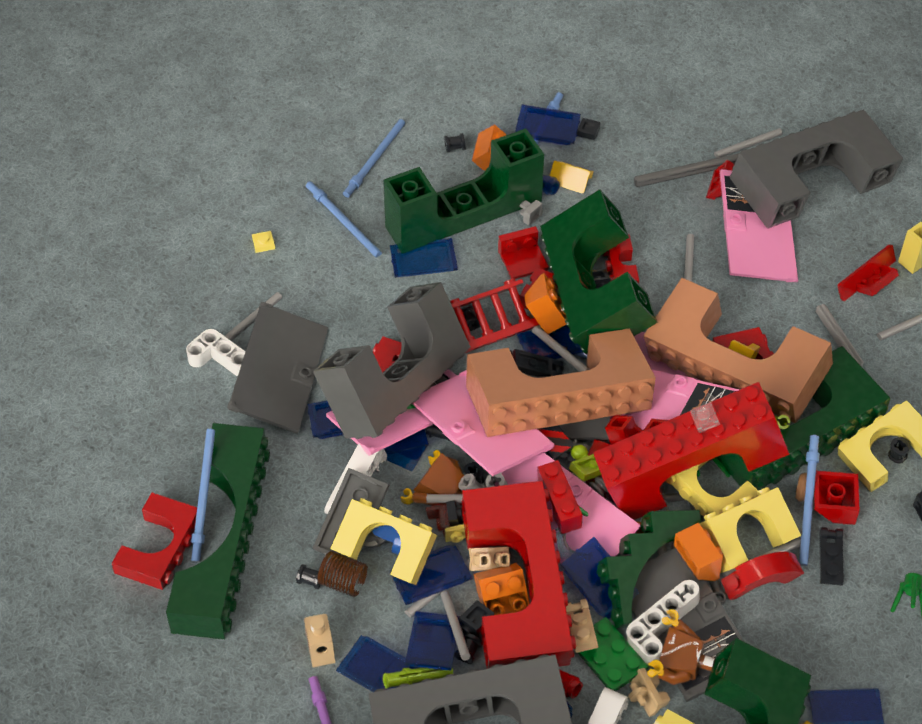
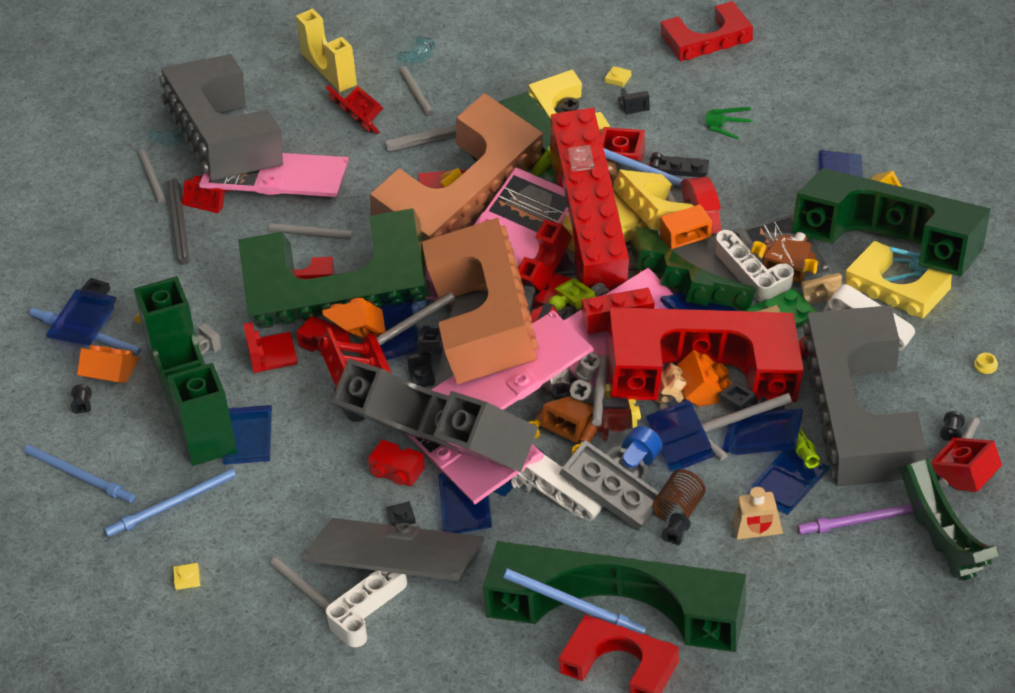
camera: 80 degrees left, 10 degrees down
(362, 519) = (629, 464): light yellow arch -> none

